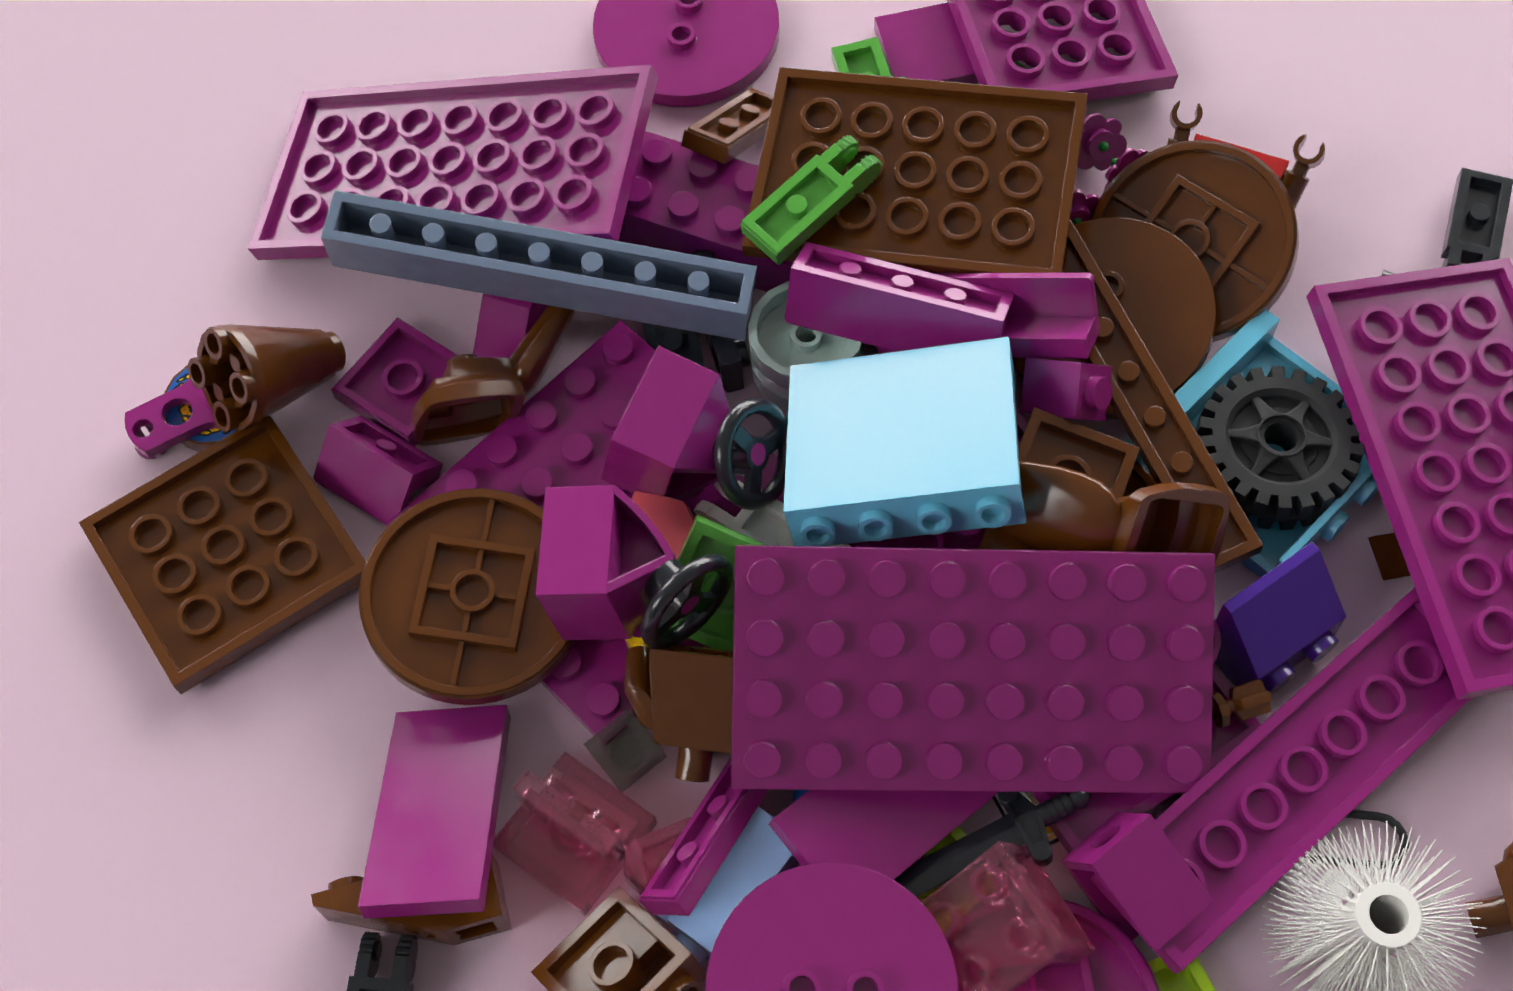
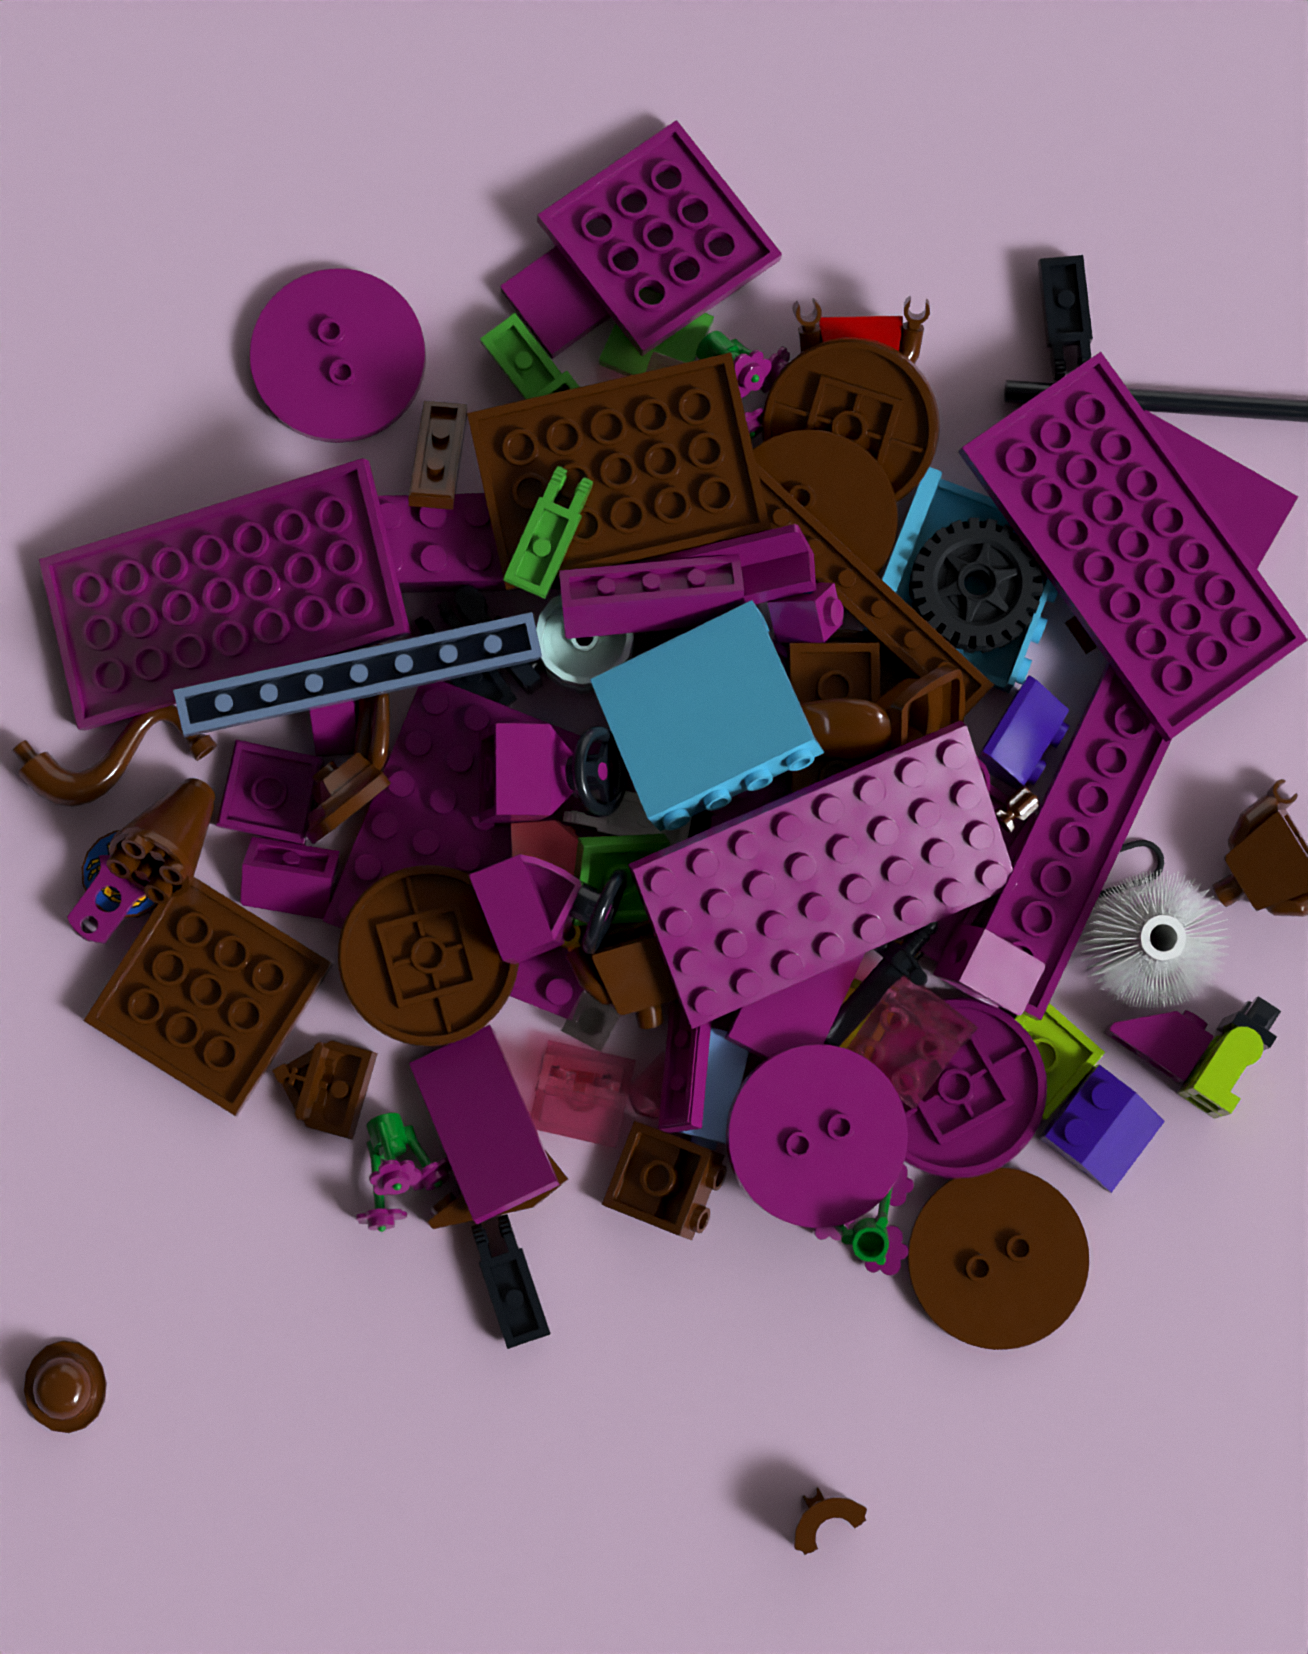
camera: 30 degrees left, 20 degrees up
(216, 303) = (85, 786): none -> reddish brown animal
(296, 703) = (328, 1086): none -> reddish brown slope
(297, 815) = (390, 1177): none -> plant

